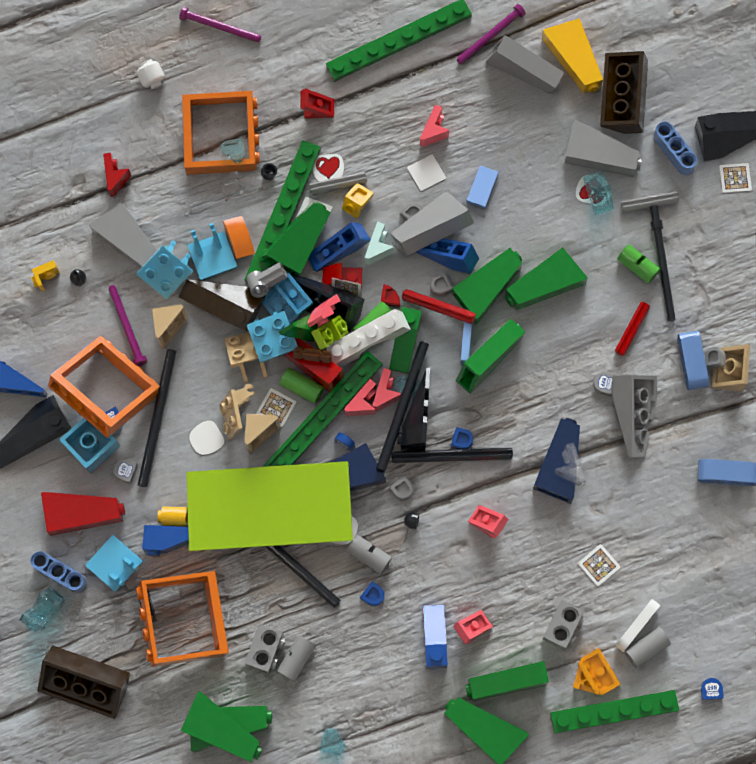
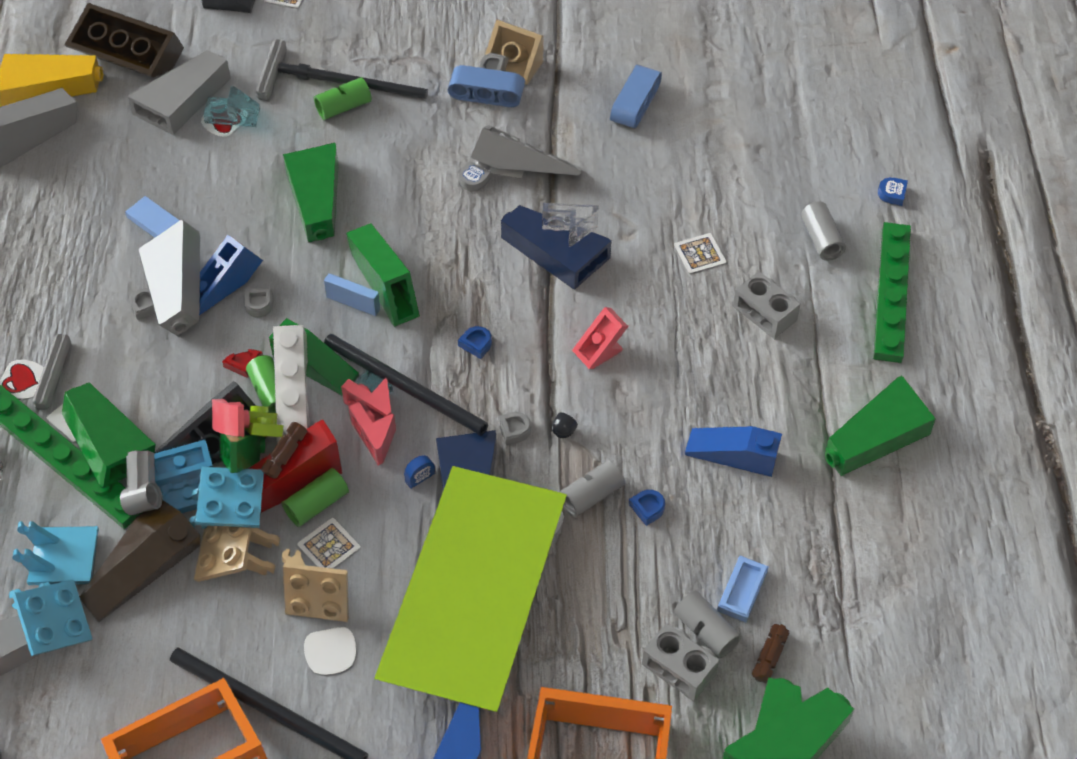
camera: 75 degrees left, 20 degrees down
(139, 359) = (101, 706): magenta bar -> none
(168, 322) = (130, 638): tan slope -> none
(173, 516) = (431, 725): yellow brick -> none
(239, 237) = (58, 508): orange slope -> none
(259, 429) = (353, 555): tan slope -> none
(292, 703) = (770, 653): none -> reddish brown axle
(305, 575) = (588, 580): black piece -> none
(326, 411) = (370, 485): green plate -> none
(331, 742) = (842, 619): clear light blue tile -> none
(333, 673) = (742, 589): none -> light blue tile
(339, 246) = (142, 391): blue slope -> none
(350, 274) = (184, 403): red slope -> none
(352, 287) = (203, 393): sticker -> none
(356, 200) = (90, 356): yellow bracket -> none
(376, 249) = (166, 351): light aqua slope -> none
(415, 424) = (438, 369): black wedge -> none
(426, 172) = (98, 273): white sticker -> none
(433, 131) = (47, 243): coral slope -> none
(438, 306) = (287, 305): red axle -> none
(452, 455) = (495, 353): black axle -> none
(472, 626) = (736, 404): coral slope -> none
(485, 285) = (289, 252): green slope -> none
(507, 681) = (823, 377): green slope -> none
(595, 674) = (838, 294): light orange slope -> none
(632, 329) = (419, 131): red axle -> none
(637, 625) = (792, 233): white beam -> none
(674, 139) = (220, 25): medium blue beam -> none

